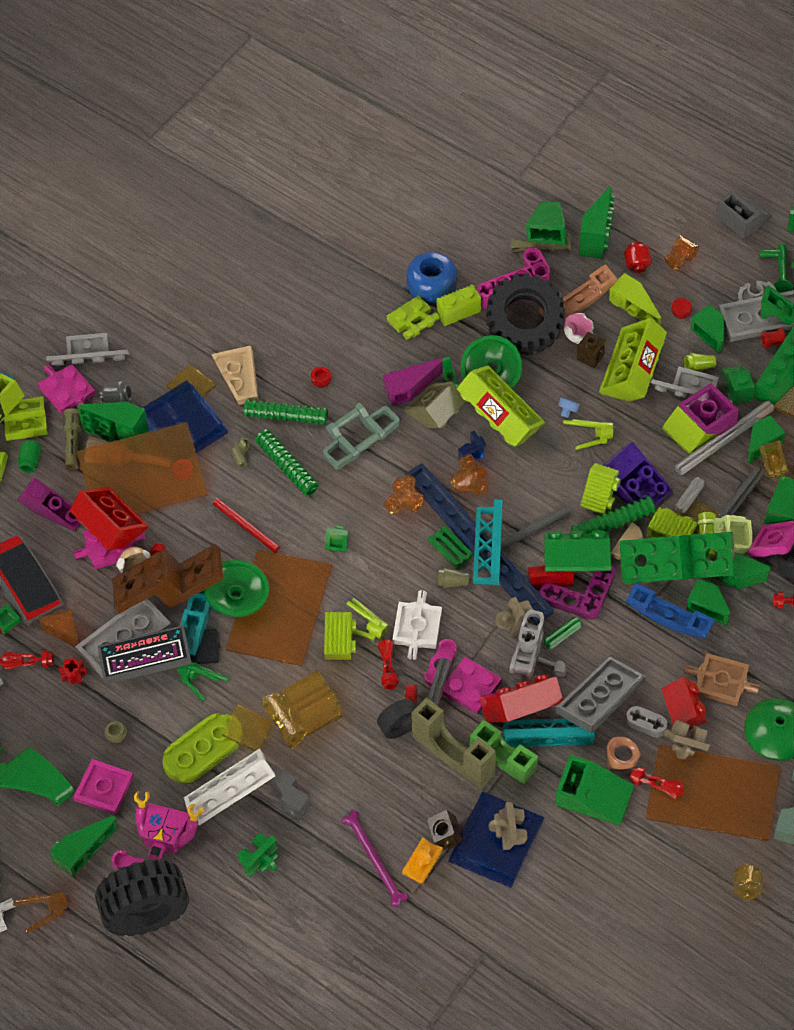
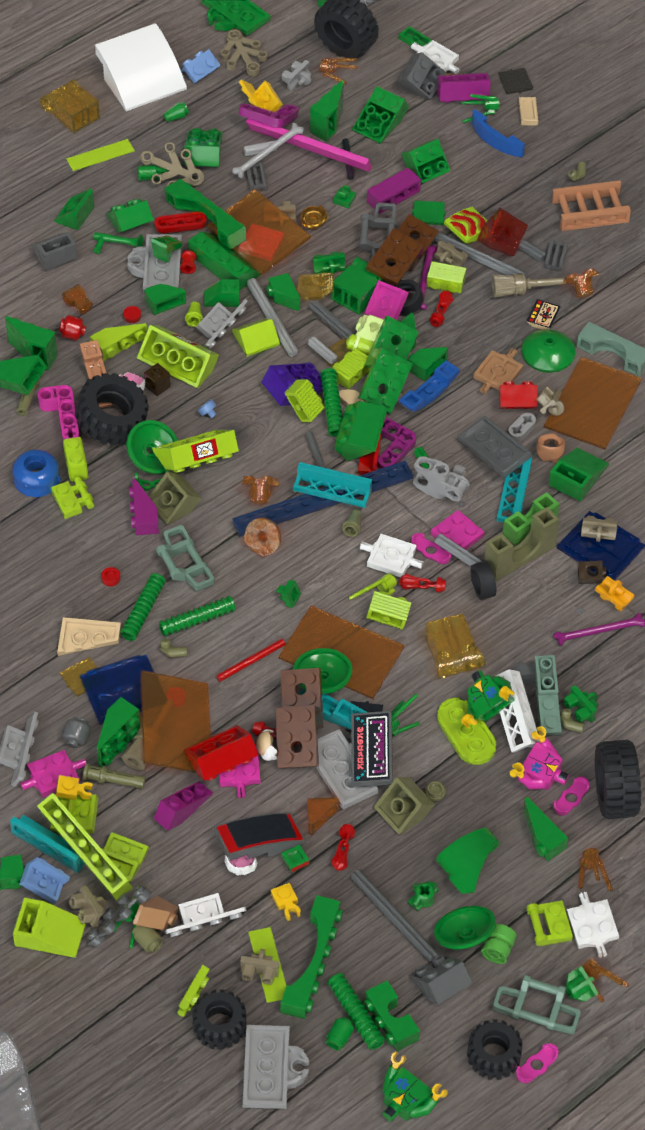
camera: 80 degrees left, 5 degrees down
(29, 456) = (121, 813): green brick -> none
(43, 403) = (69, 788): none -> yellow plate
(72, 671) = (366, 812): red gear -> none
(90, 704) = (403, 804): none -> olive slope
(103, 787) = (488, 807): dark pink plate -> none
(231, 750) = (487, 698): none -> green torso
(235, 847) = (568, 723): none -> olive arm
(246, 728) = (455, 692): clear yellow piece -> none
(256, 816) = (547, 694): none -> sand green slope
(412, 693) = (458, 572): red tile -> none
(439, 535) = (318, 517): green tile -> none
(475, 448) = (228, 478): clear blue bracket -> none
(513, 616) = (408, 483): dark tan hips -> none
(521, 700) = (487, 497): wedge -> none
(603, 430) = (239, 393): lime plant -> none
(671, 787) = (587, 422): red piece -> none
(710, 410) = (254, 309): magenta slope -> none

